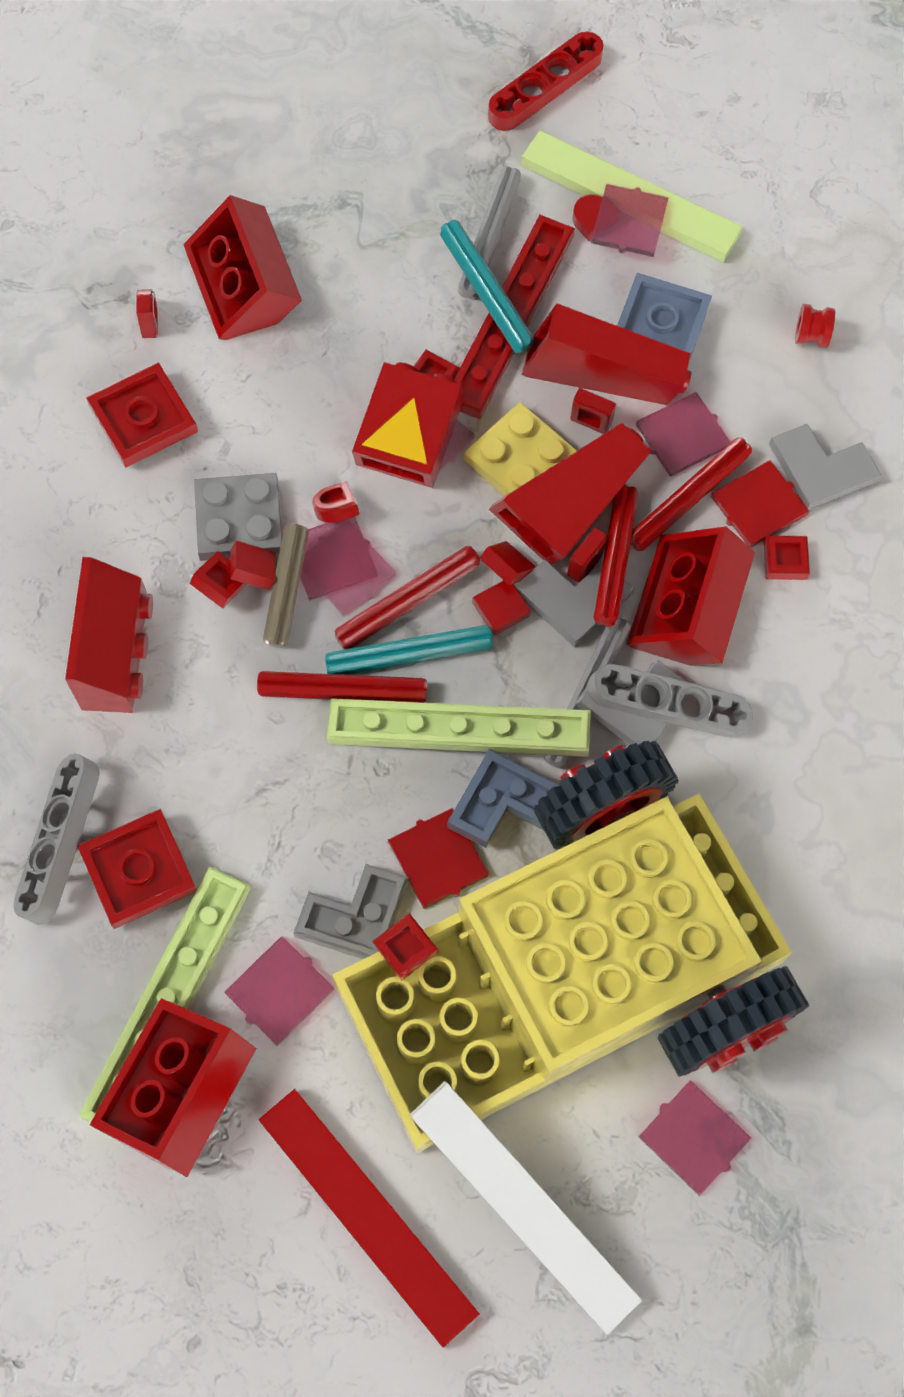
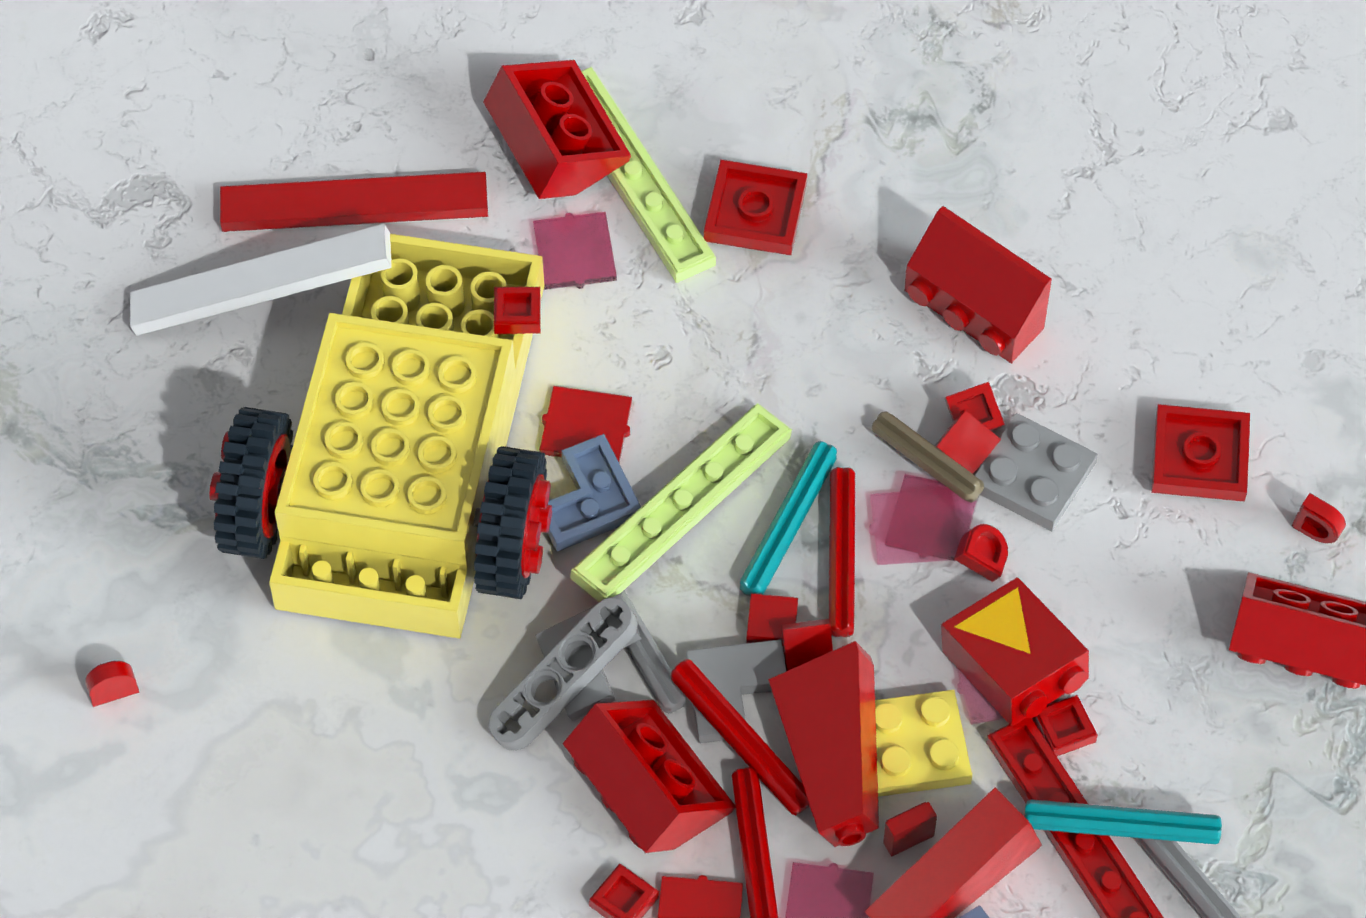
camera: 130 degrees right, 10 degrees down
(37, 899) = (828, 168): light grey beam -> none
(341, 686) = (796, 447): red axle -> none
(353, 926) = (578, 333): light grey tile -> none
(587, 555) = (761, 713): red tile -> none
(694, 1137) = (194, 451): clear pink piece -> none

